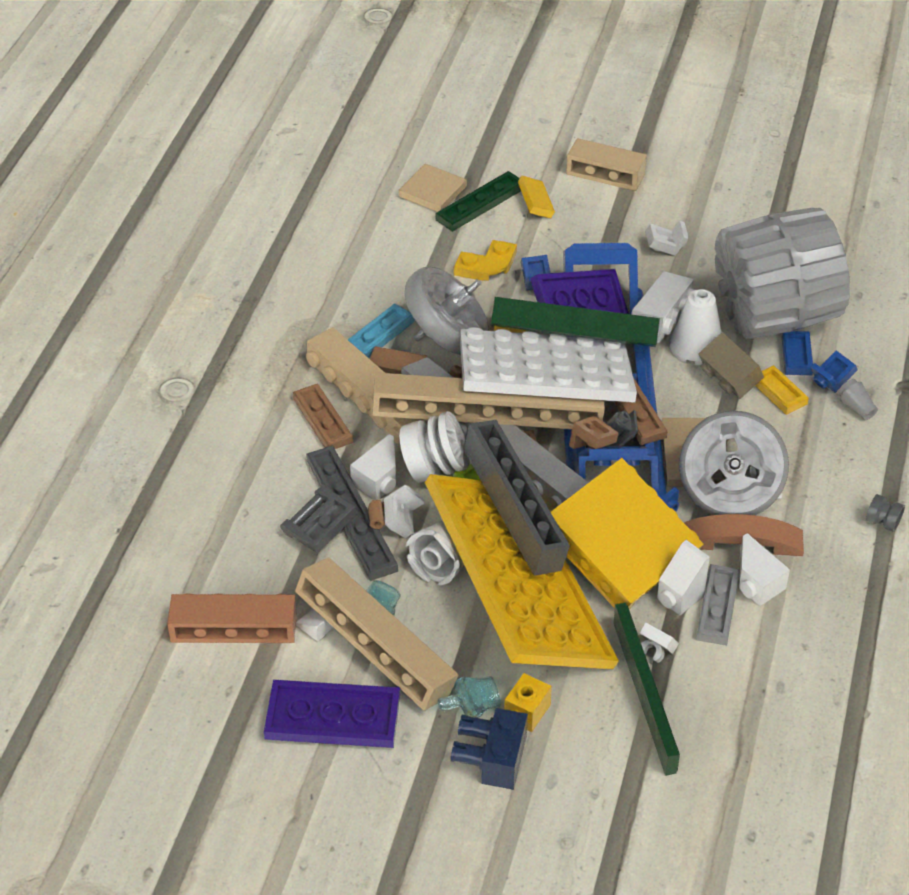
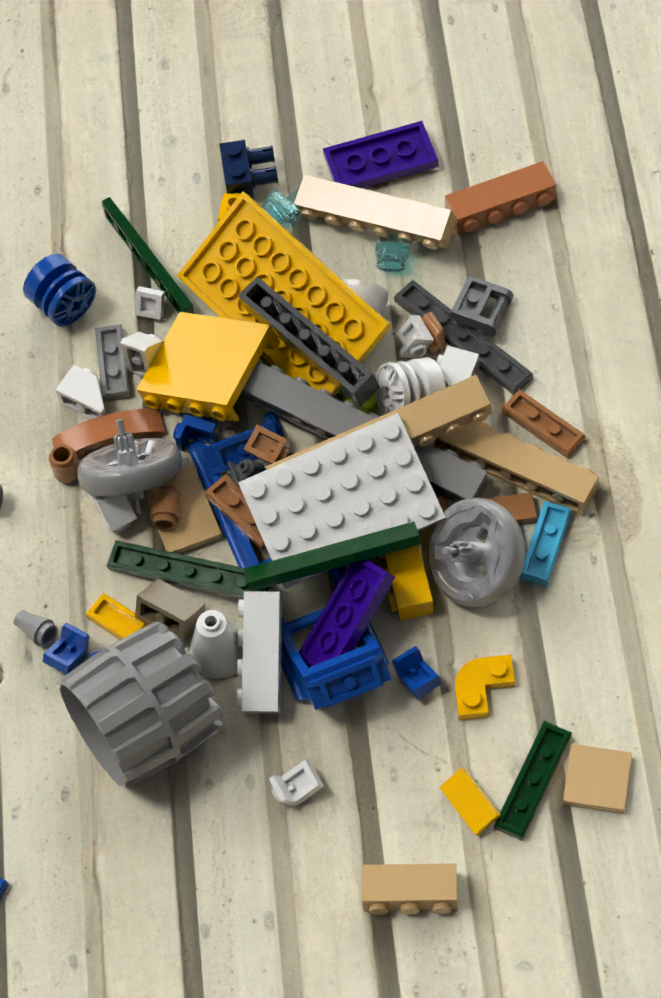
camera: 165 degrees right, 15 degrees up
(689, 381) = (179, 569): none -> dark green tile
(758, 668) = (59, 289): none -> blue wheel
(797, 506) = (64, 463): none -> medium nougat brick

